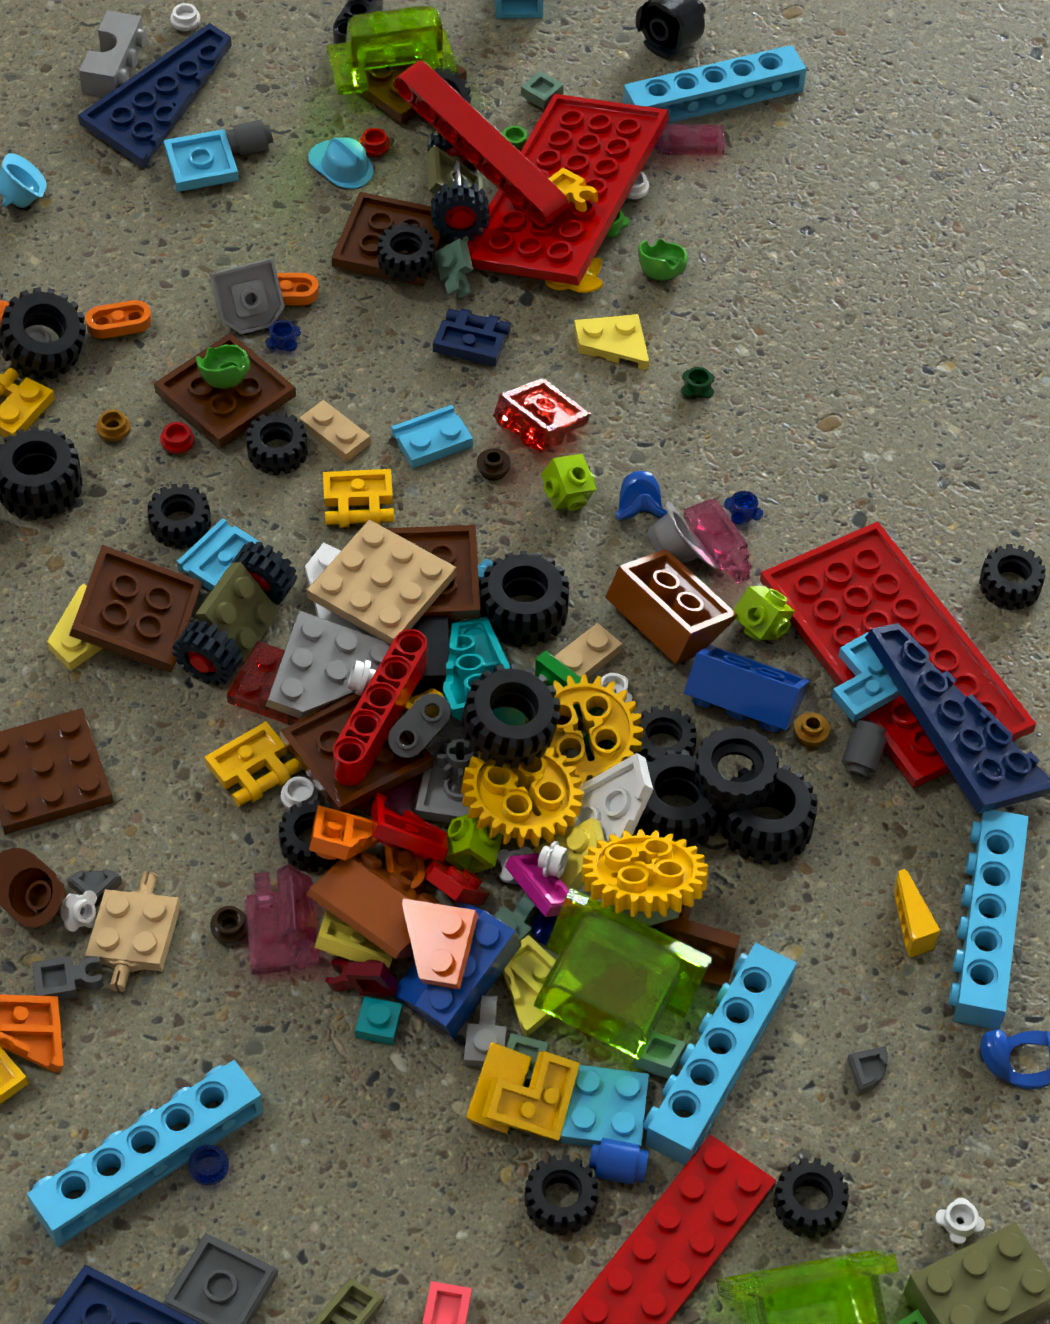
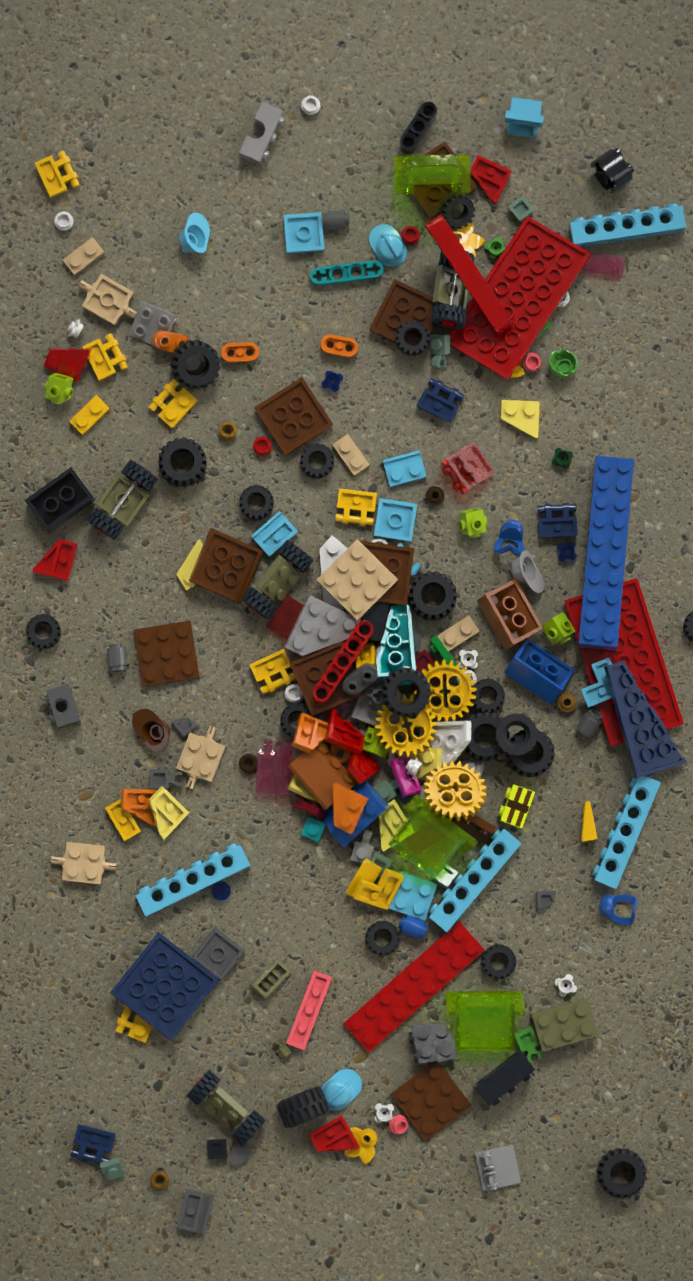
camera: 10 degrees right, 30 degrees up
(71, 910) = (175, 743): white plate -> none
(74, 1030) = (166, 811): none -> light yellow wing
(149, 104) = (278, 179): dark blue wing -> none
(224, 366) = (294, 409): bright green hair -> none
(248, 295) = (315, 353): light grey piece -> none
(279, 198) = (346, 270): none -> teal beam
(360, 676) = (335, 642): white plate -> none
(432, 500) = (395, 520): none -> medium azure plate
(485, 60) = (490, 177): none -> red wing
(574, 188) = (516, 310): yellow plate -> none
(611, 267) = (531, 362): none -> coral plate
(718, 474) = (560, 526): none -> dark blue plate
(720, 538) = (548, 570): clear pink hinge -> none
(768, 908) = (516, 806): none -> brick
(815, 493) = (606, 553): none -> blue brick

